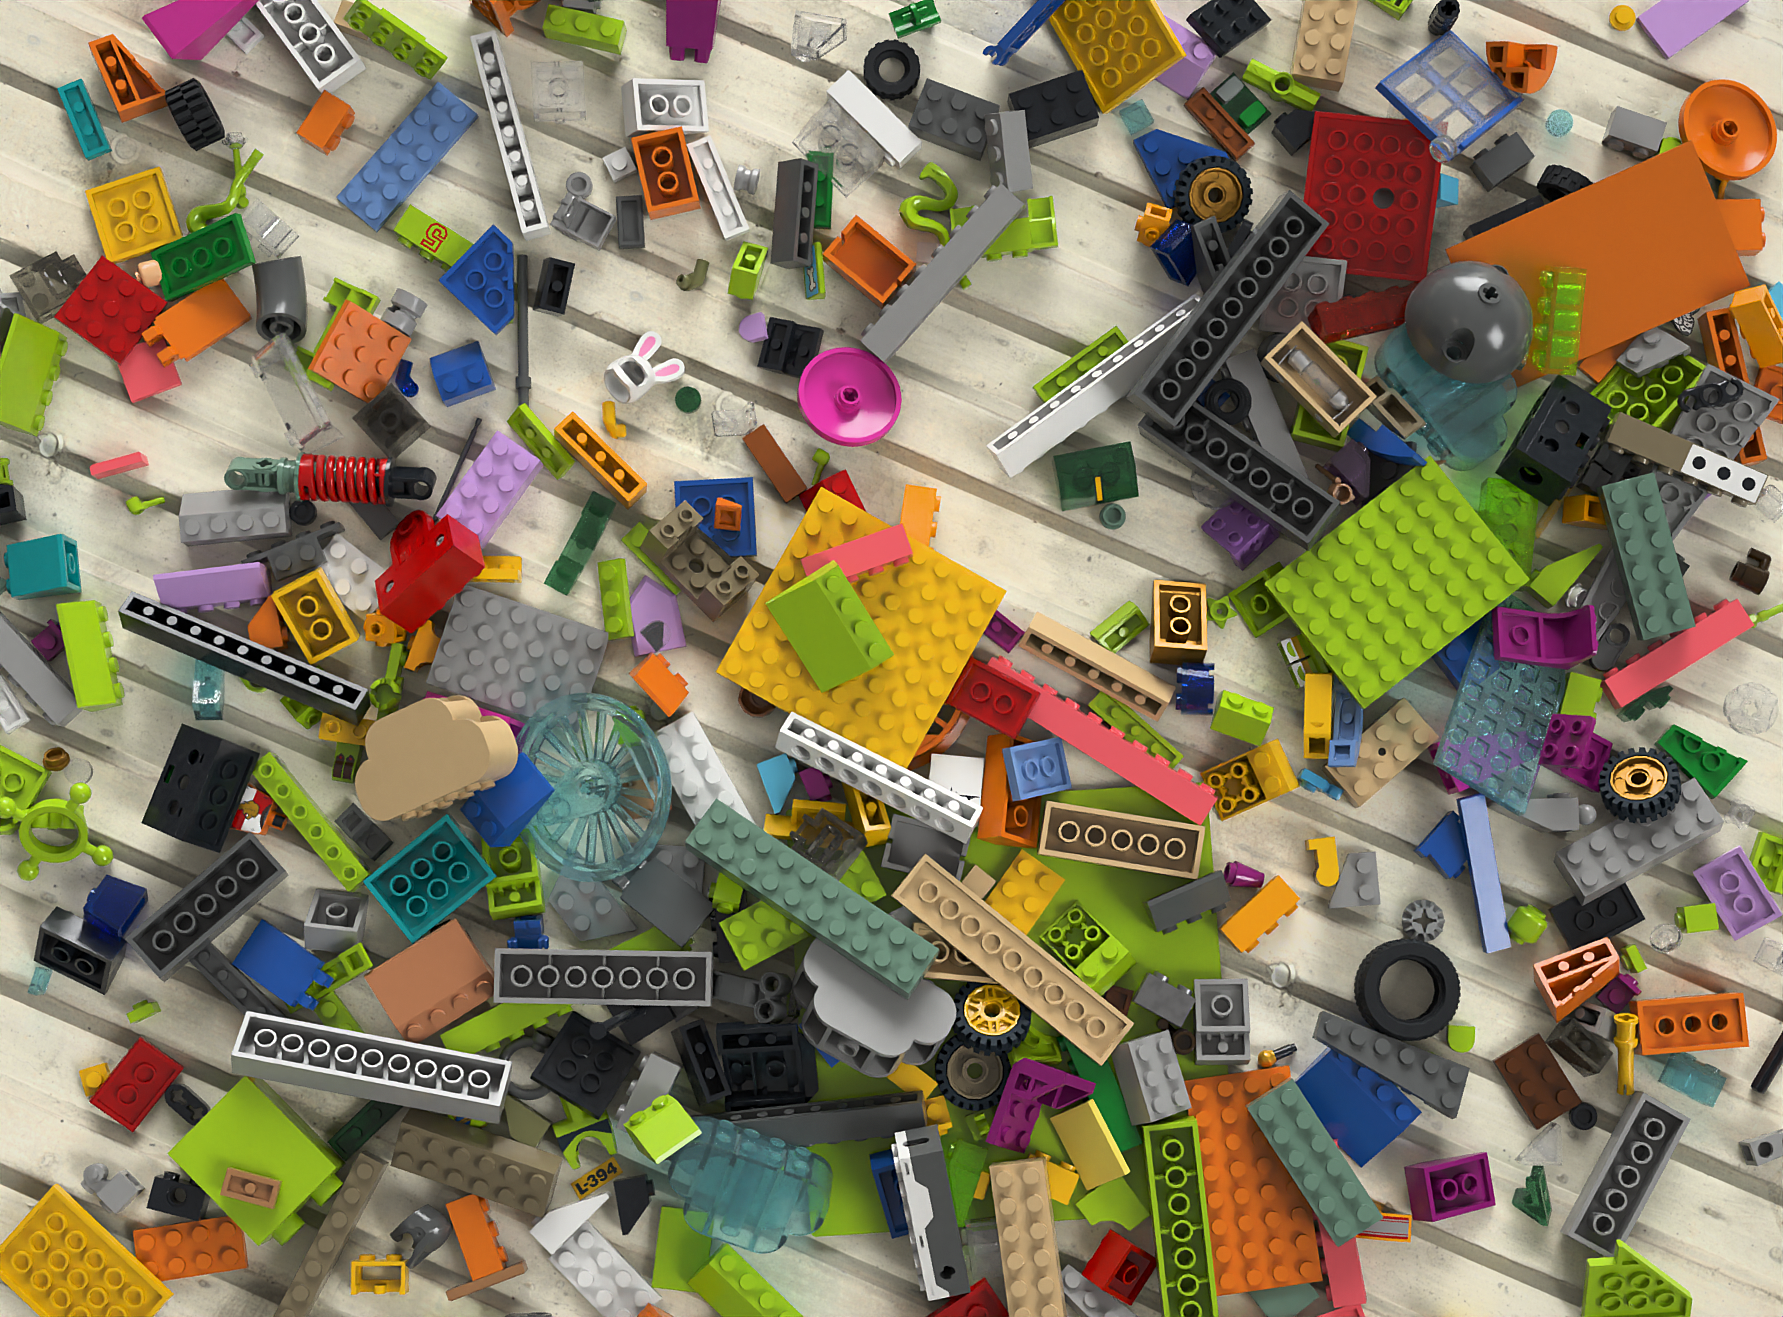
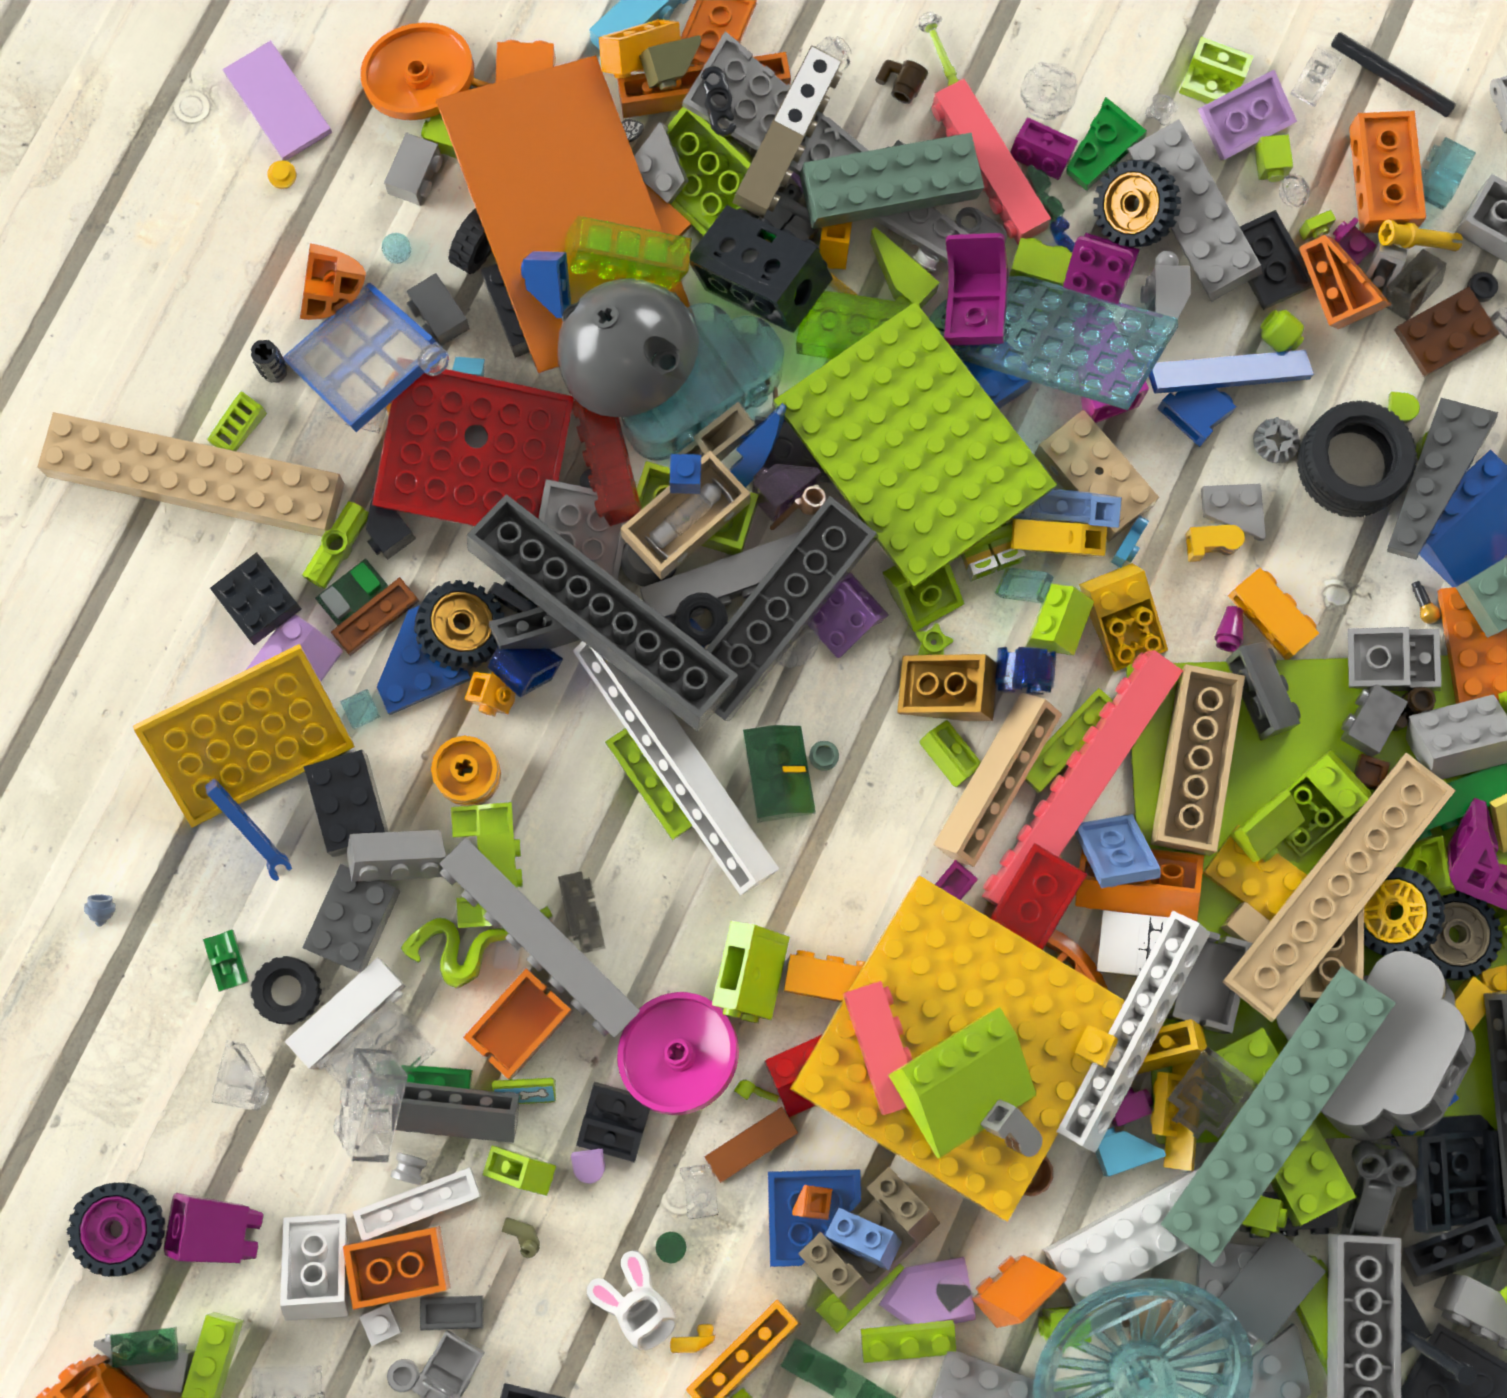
camera: 90 degrees left, 5 degrees down
(698, 554) = (863, 1238): none -> medium blue brick
(789, 674) = (1010, 1124): none -> light grey leg
(797, 140) = (370, 1105): none -> clear brick
(864, 742) = (1096, 1046): none -> yellow plate
(919, 454) = (750, 972): none -> lime piece
(968, 312) = (579, 907): none -> clear smoke piece
(1061, 900) = (1268, 827): none -> lime slope
(1092, 194) = (456, 756): none -> light orange wheel
(1273, 687) = (1024, 585): none -> clear light blue tile
(1352, 373) = (685, 474): none -> blue brick
(1528, 250) = (548, 279): none -> blue slope
(1611, 717) = (1058, 232): none -> clear blue arm
(1693, 702) = (1043, 148): none -> magenta bracket
(1746, 350) = (668, 61): none -> olive slope

